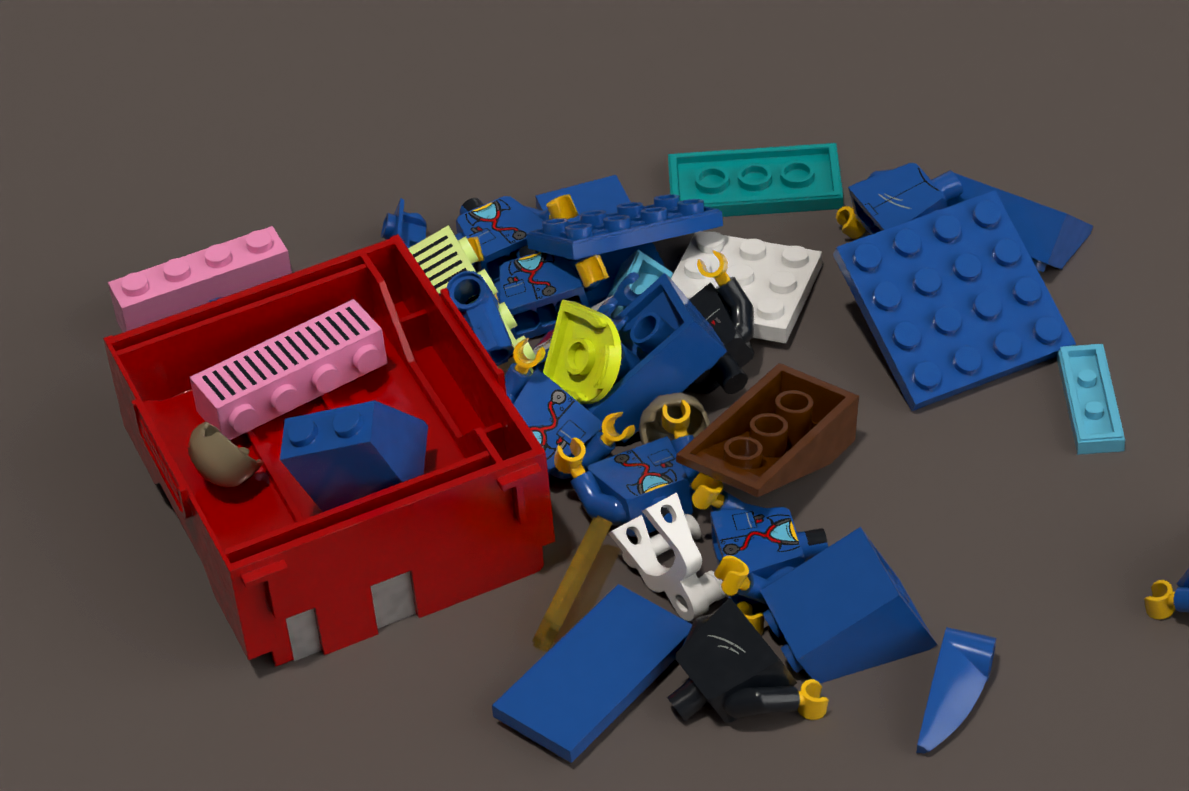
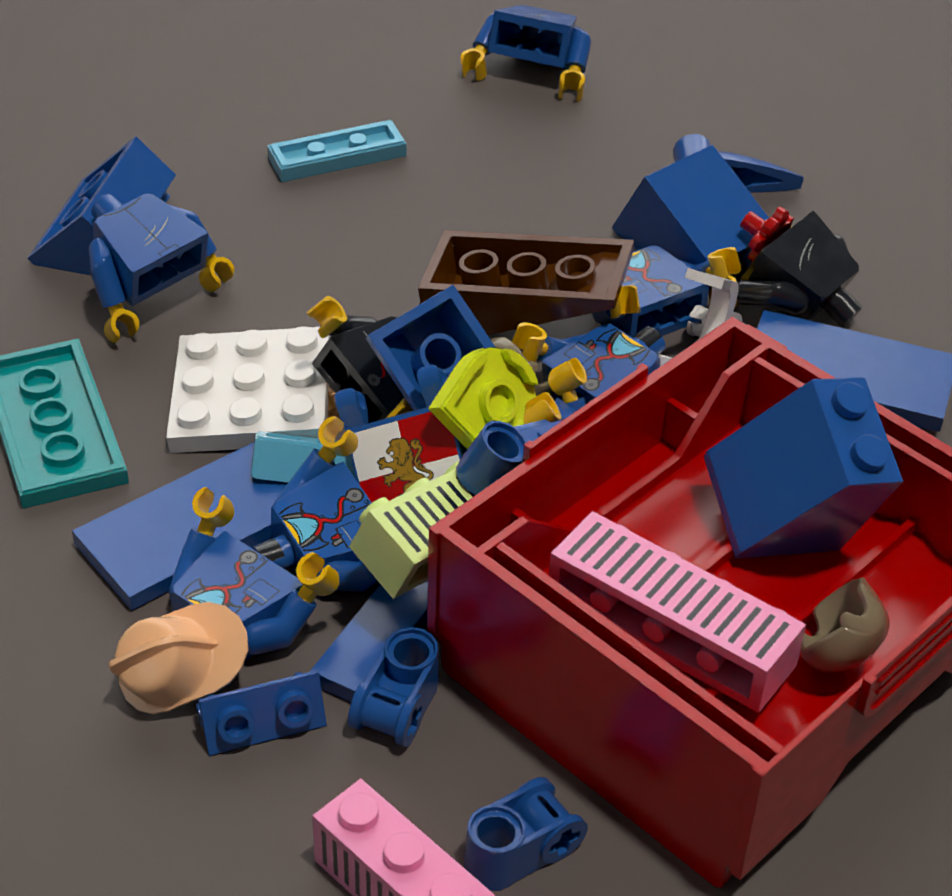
camera: 115 degrees left, 0 degrees up
(451, 191) = (179, 656): none -> light nougat piece
(626, 228) = (234, 449): blue tile -> none
(774, 626) = (766, 230): none -> red plant
(953, 299) = (263, 207): blue plate -> none

